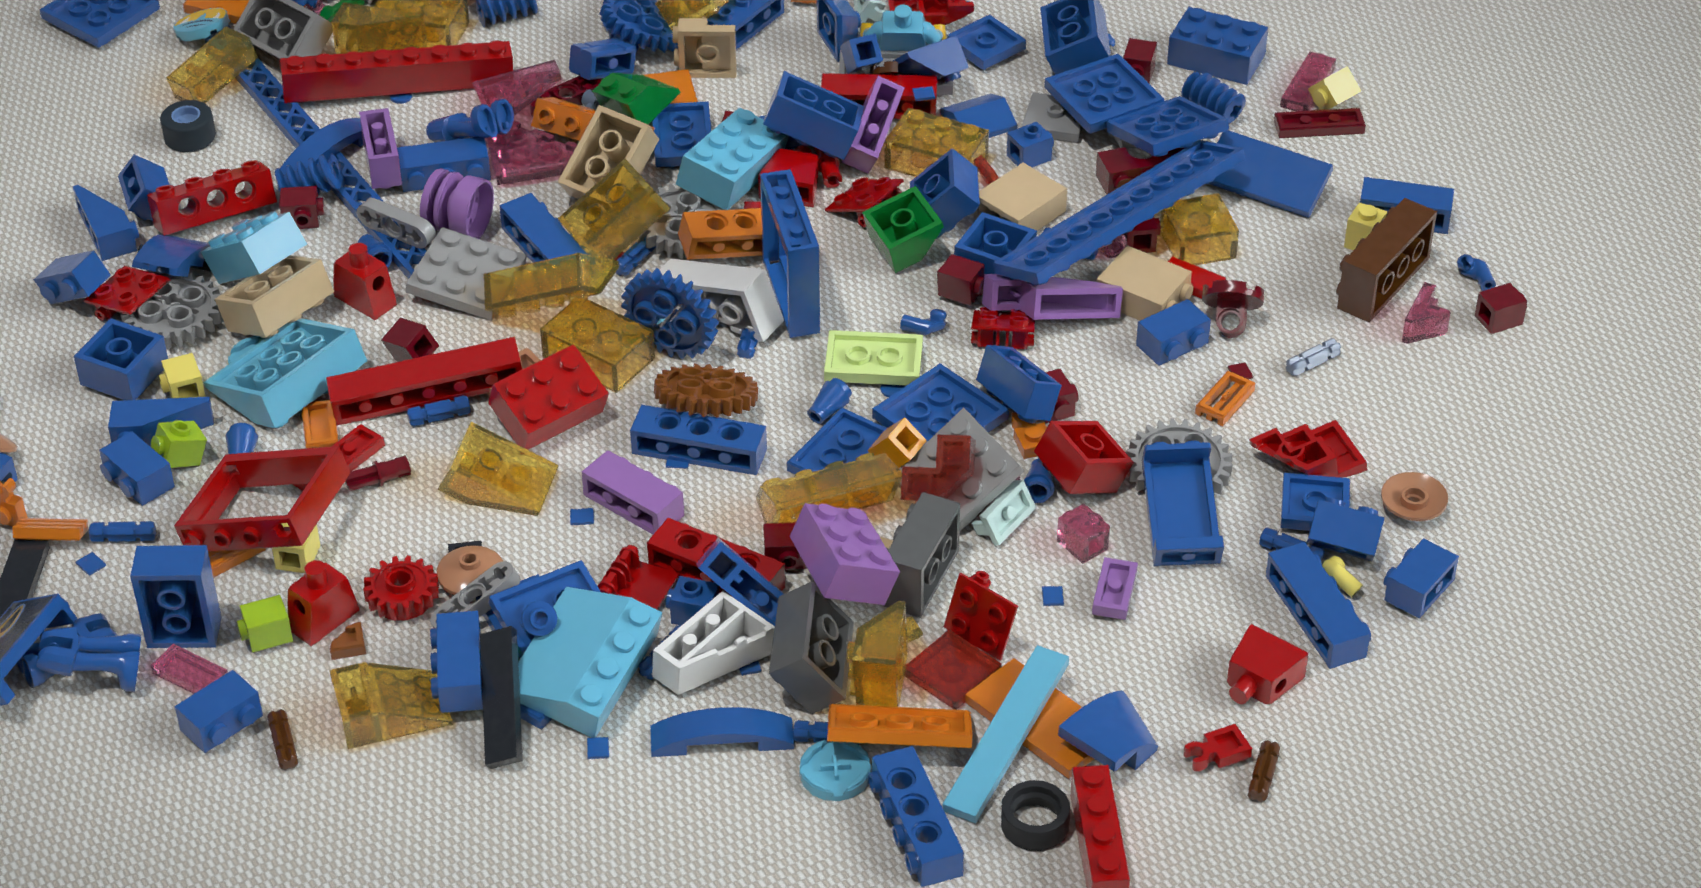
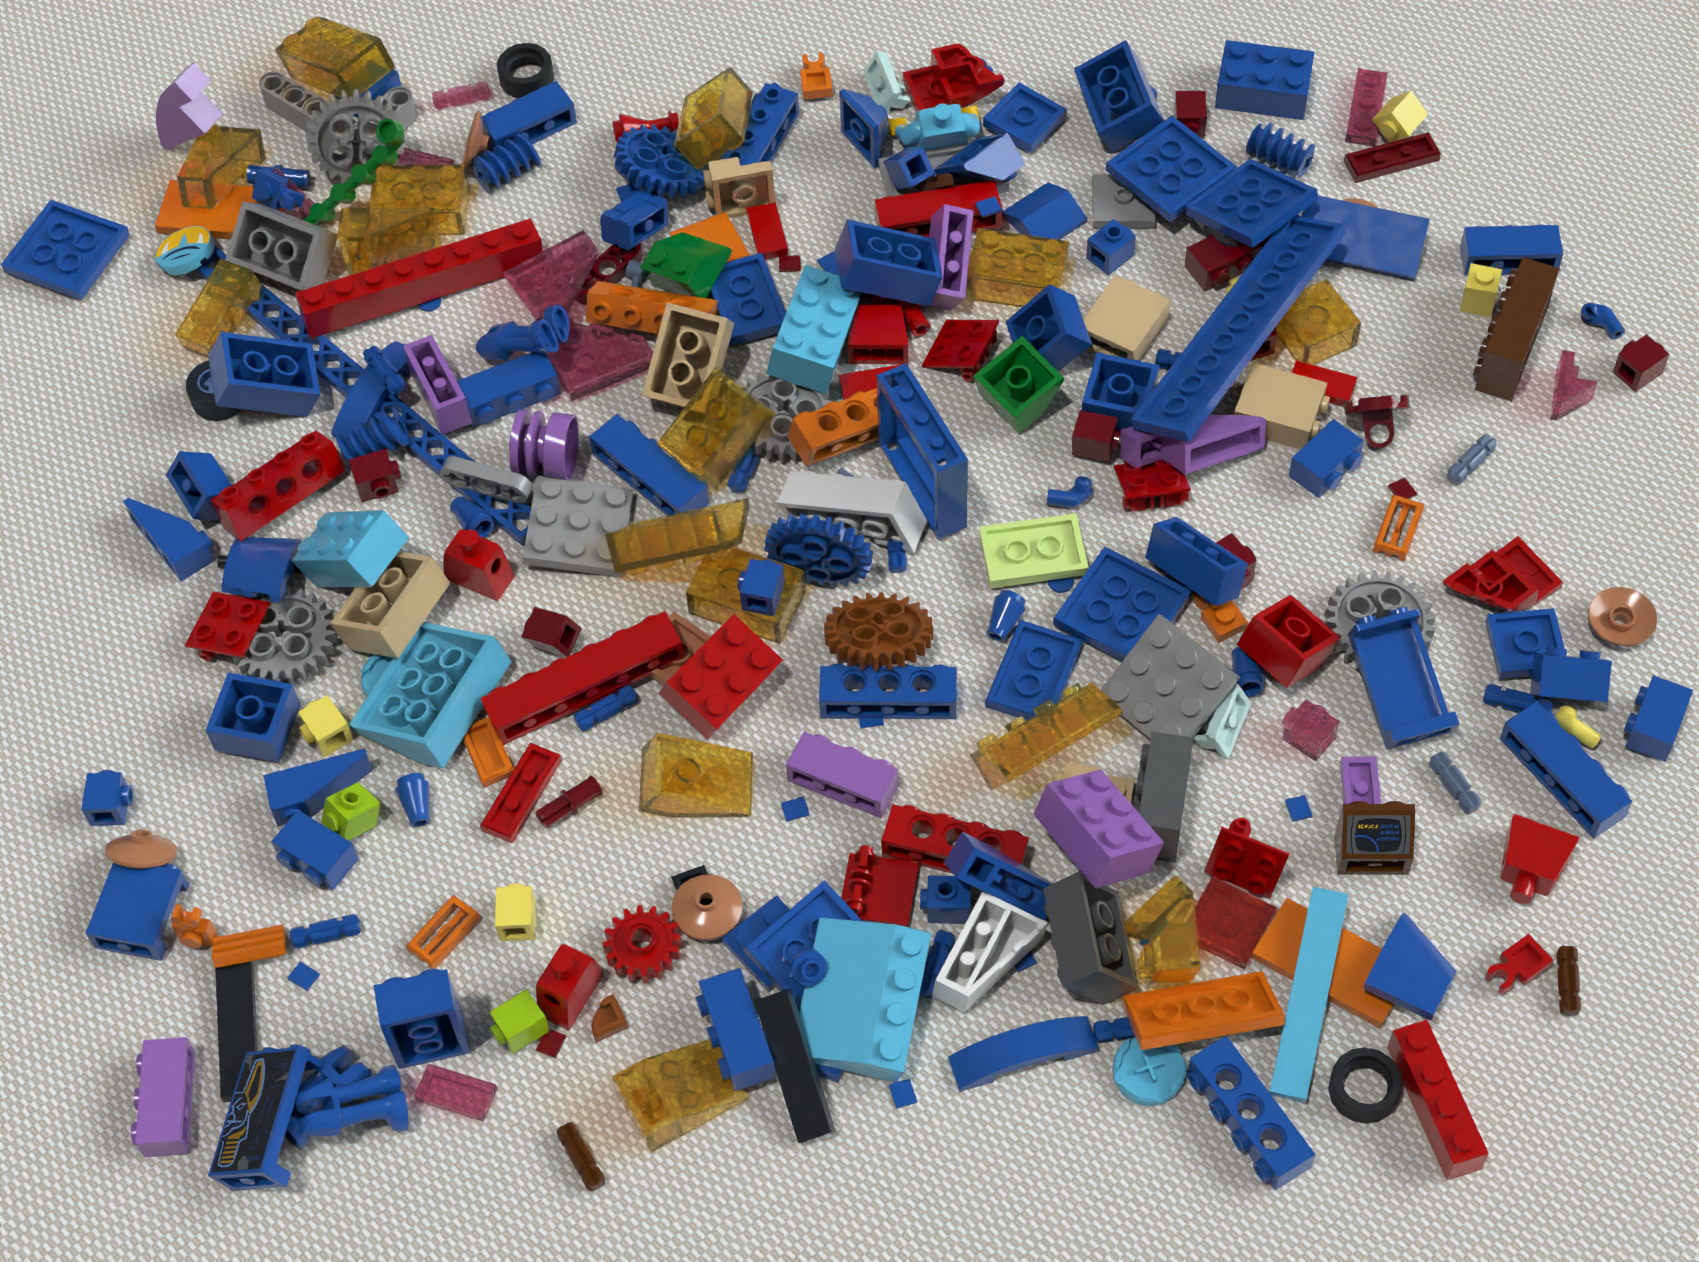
camera: 10 degrees left, 15 degrees up
(72, 277) = (163, 621): blue brick -> none
(218, 711) = (508, 1142): blue brick -> none
(230, 114) = (264, 374): none -> blue brick
(291, 652) = (551, 1043): none -> dark red window
(319, 467) = (463, 827): red window -> none
(337, 130) = (384, 370): none -> blue axle
(498, 578) = (725, 929): light grey beam -> none
(606, 329) = (761, 587): none -> blue brick
(721, 89) = (767, 230): none -> red tile
(780, 546) = (1015, 808): dark red brick -> none
(899, 442) = (1095, 662): light orange brick -> none
(953, 468) = (1158, 711): clear red brick -> none
(985, 170) = (1079, 291): clear red tile -> none
(1111, 620) = (1375, 838): none -> slope
(1208, 599) = (1455, 782): none -> sand blue axle

